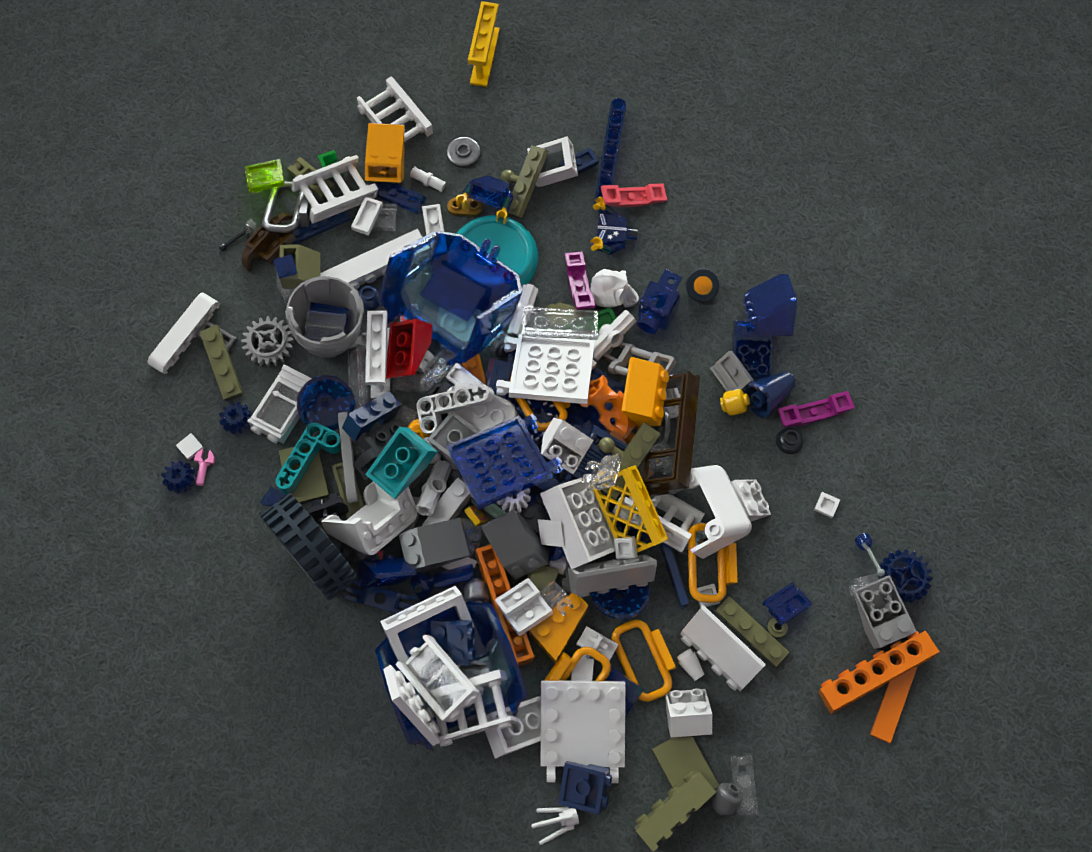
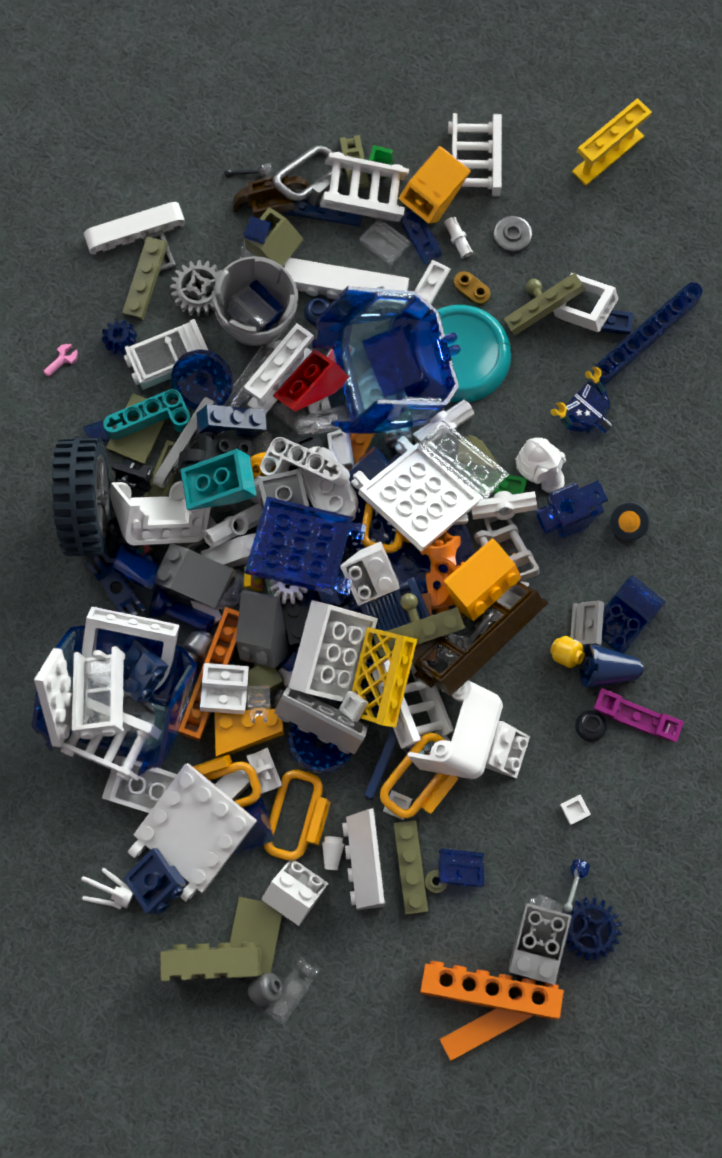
camera: 40 degrees right, 5 degrees up
(176, 484) = (25, 357): clear blue gear -> none
(189, 446) = (63, 334): white tile -> none
(264, 176) = (313, 131): clear neon green plate -> none
(367, 215) = (374, 233): white tile -> none
(488, 191) = (501, 289): clear blue torso -> none
(551, 533) = (295, 642): white sticker -> none
(578, 281) = (517, 433): magenta slope -> none
(603, 473) = (384, 625): clear plate -> none
(633, 195) = (634, 388): coral slope -> none
(772, 307) = (669, 589): clear blue windscreen -> none

